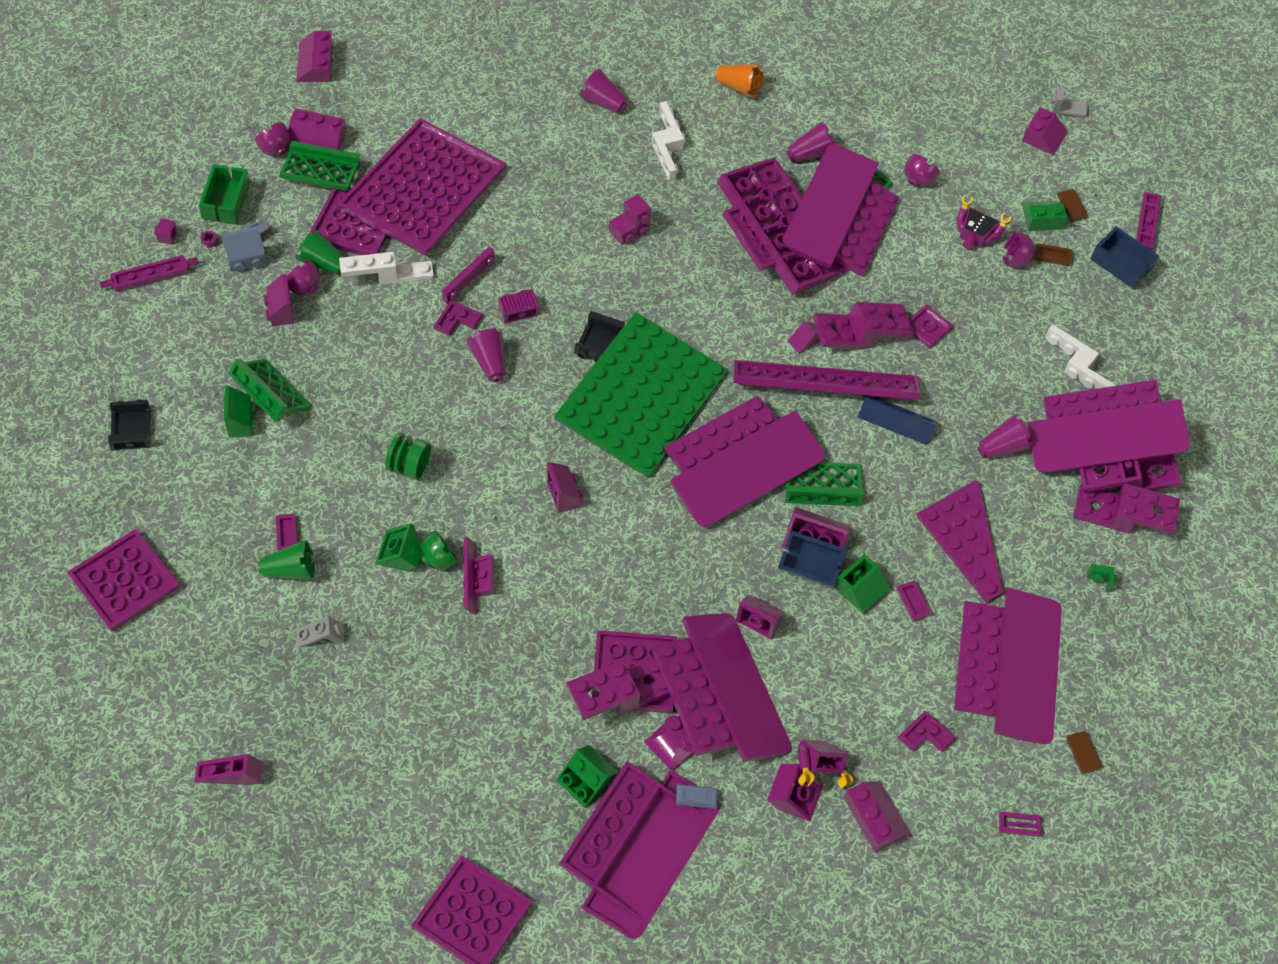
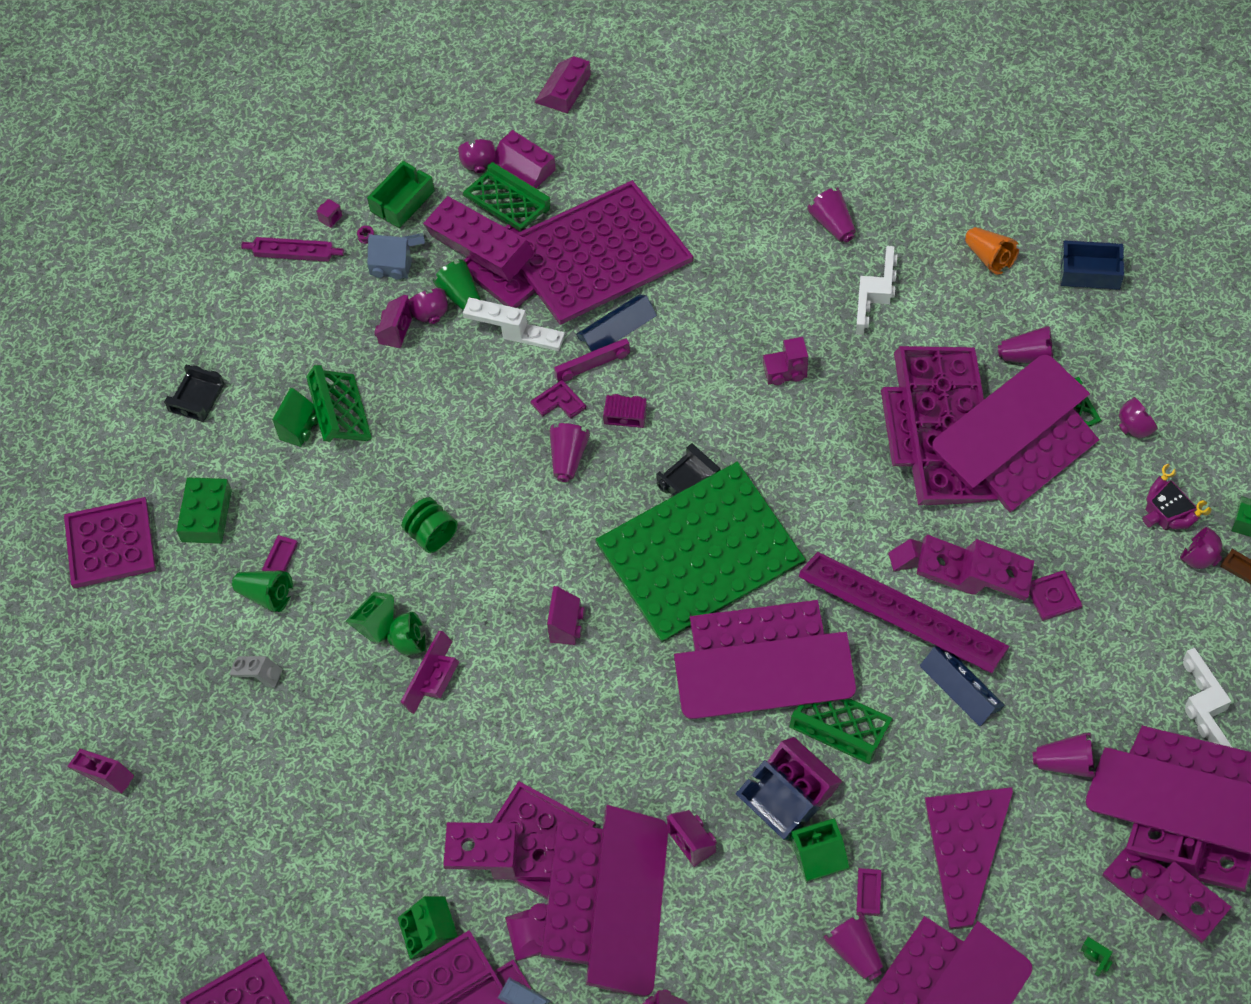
camera: 35 degrees right, 0 degrees up
(197, 519) = (204, 510): none -> green brick
(318, 206) = (479, 238): none -> magenta brick
(471, 238) = (618, 323): none -> dark blue panel
(824, 65) = (1092, 265): none -> dark blue piece
(929, 643) = (856, 946): none -> magenta cone

